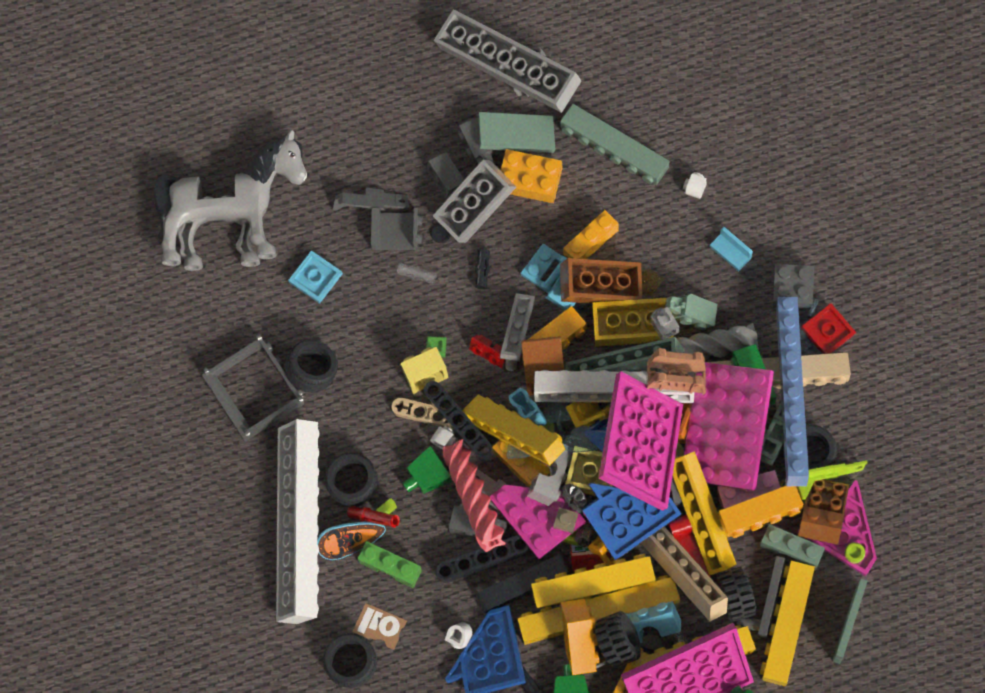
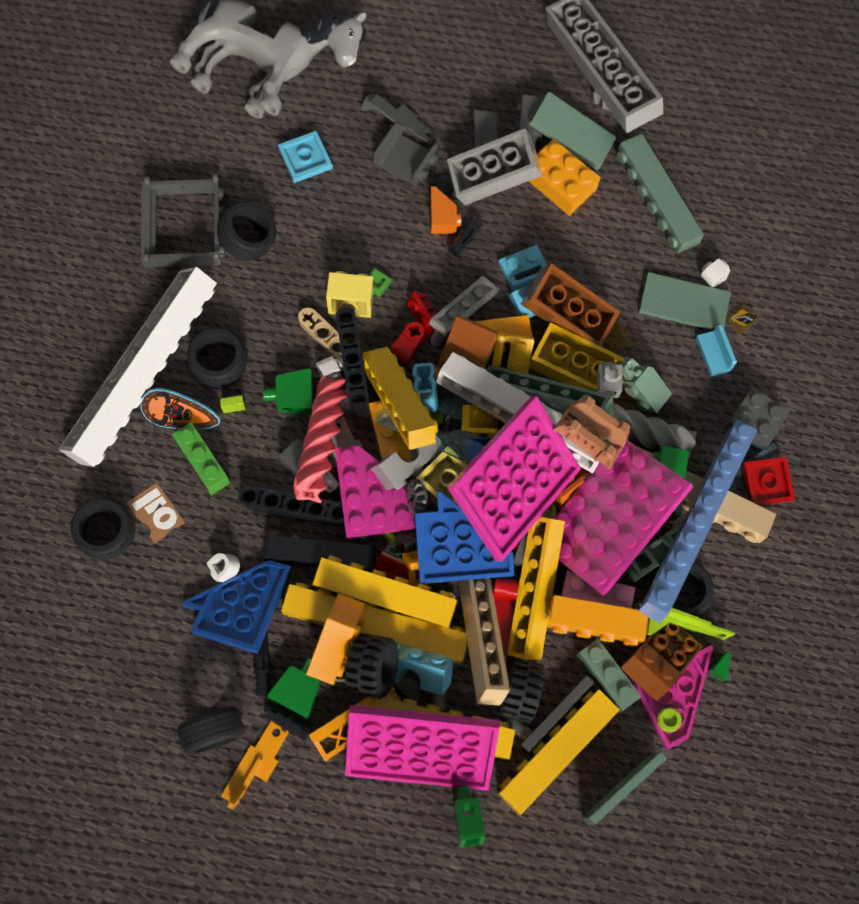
camera: 15 degrees right, 0 degrees up
(368, 515) = (211, 400): red pin -> none
(416, 273) = (400, 205): clear pin -> none
(454, 260) = (443, 213): none -> orange slope
(491, 385) = (407, 346): none -> red piece
(565, 520) = (395, 515): dark tan plate -> none
(582, 340) = (519, 352): none -> yellow plate
(591, 237) = (589, 263): light orange brick -> none
(685, 222) = (684, 302): none -> sand green tile
(737, 211) = (742, 320): none -> slope
(870, 492) = (720, 667): none -> green slope

